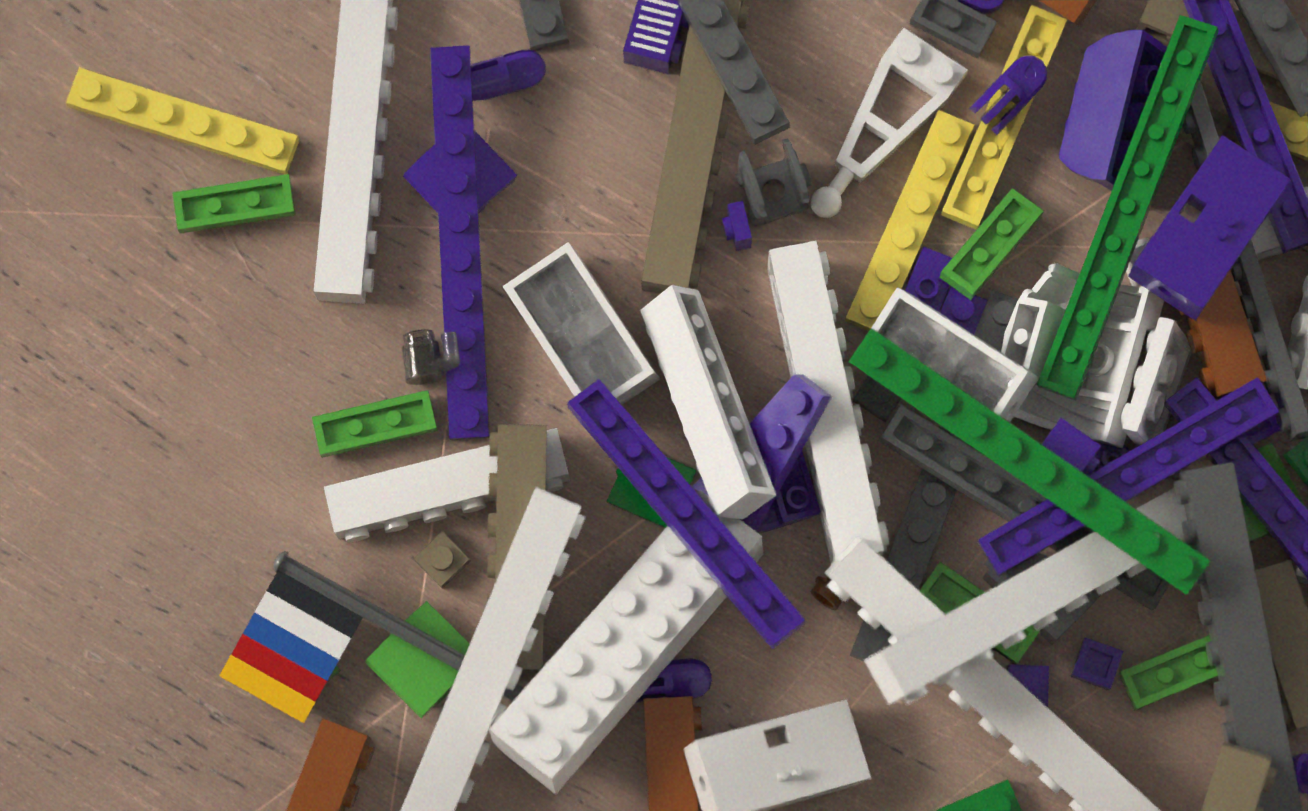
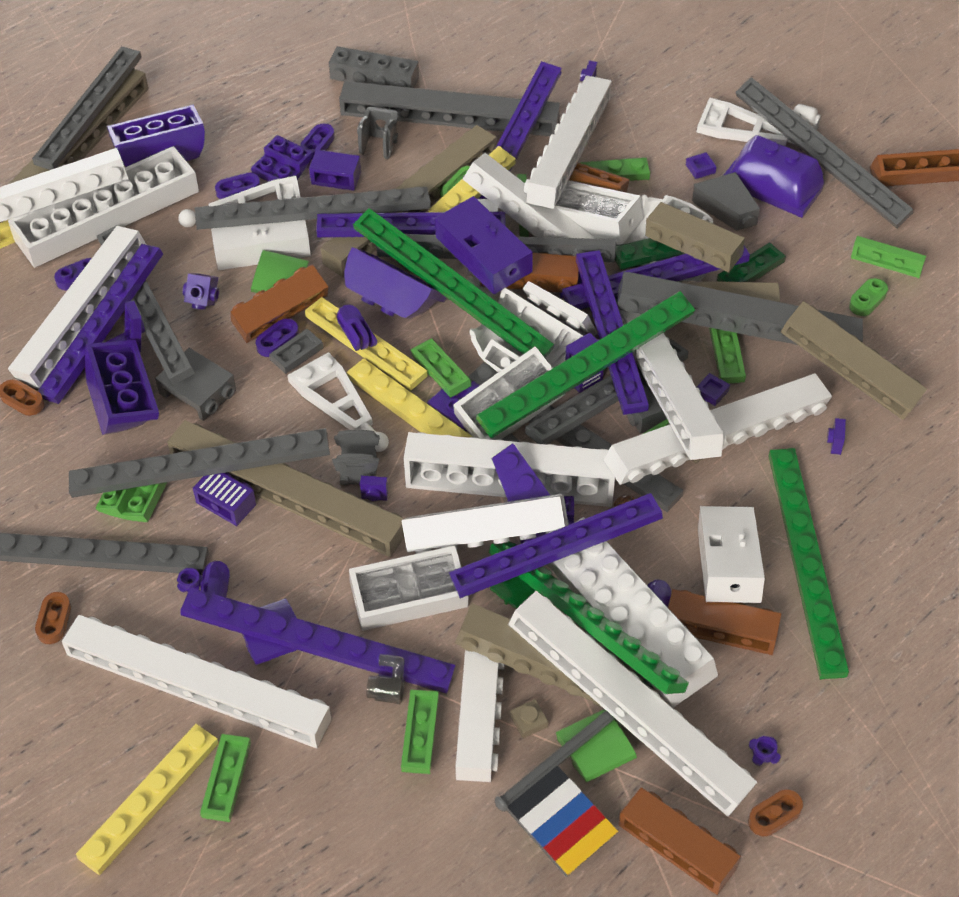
camera: 75 degrees left, 25 degrees down
(506, 28) = (187, 575): none -> dark purple plate
(567, 610) = (606, 632): none -> green plate

